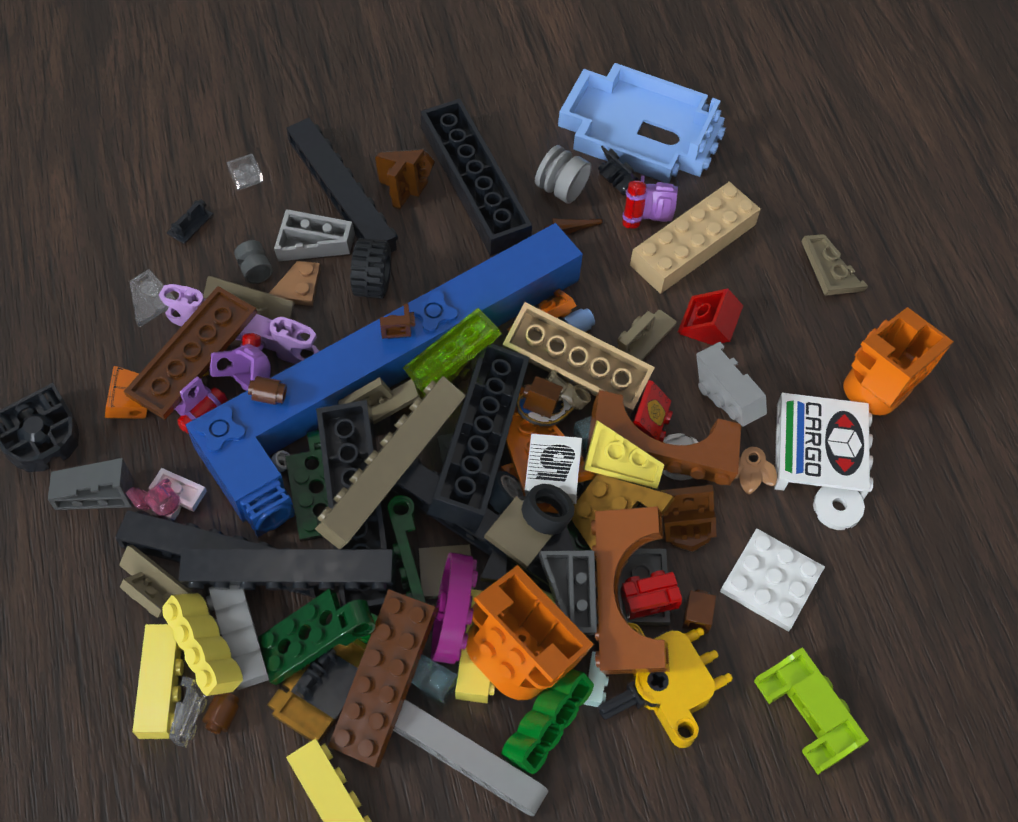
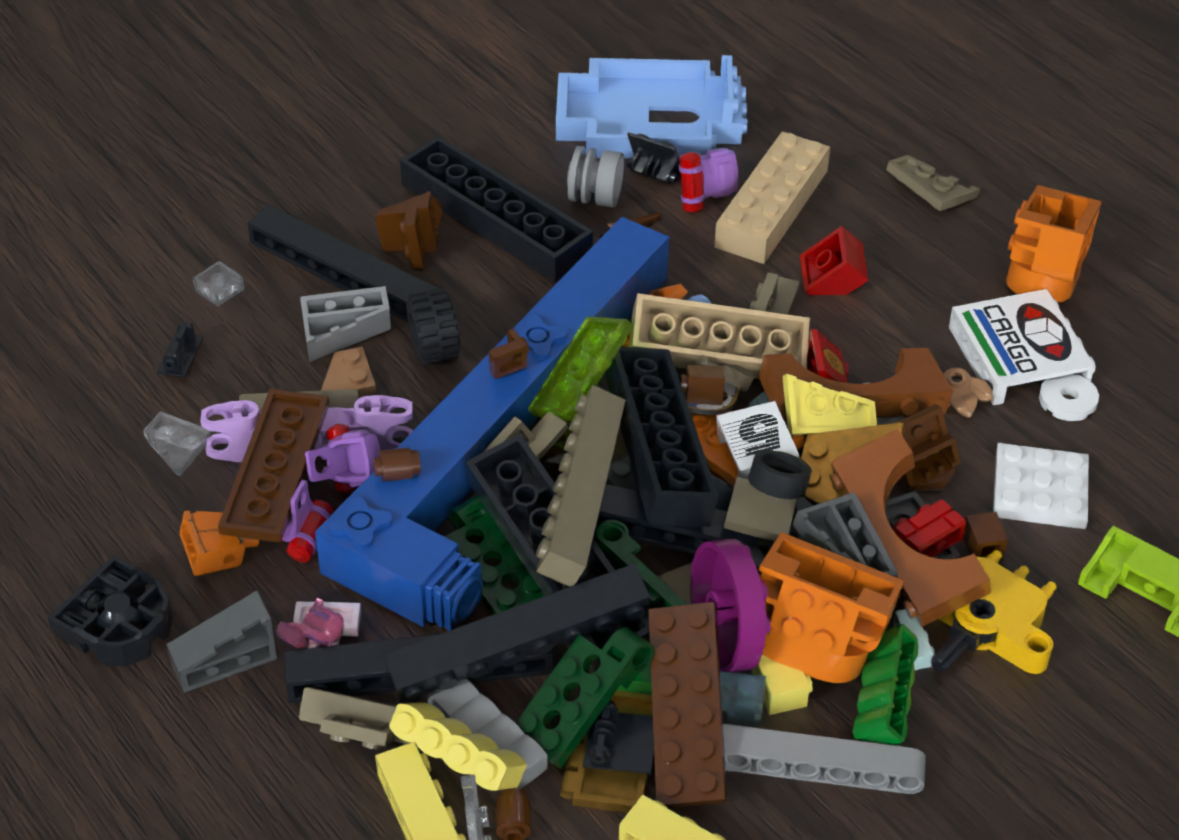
camera: 20 degrees left, 15 degrees down
(253, 261) = (284, 366): dark grey wheel -> none
(728, 387) = (895, 317): light grey wedge -> none

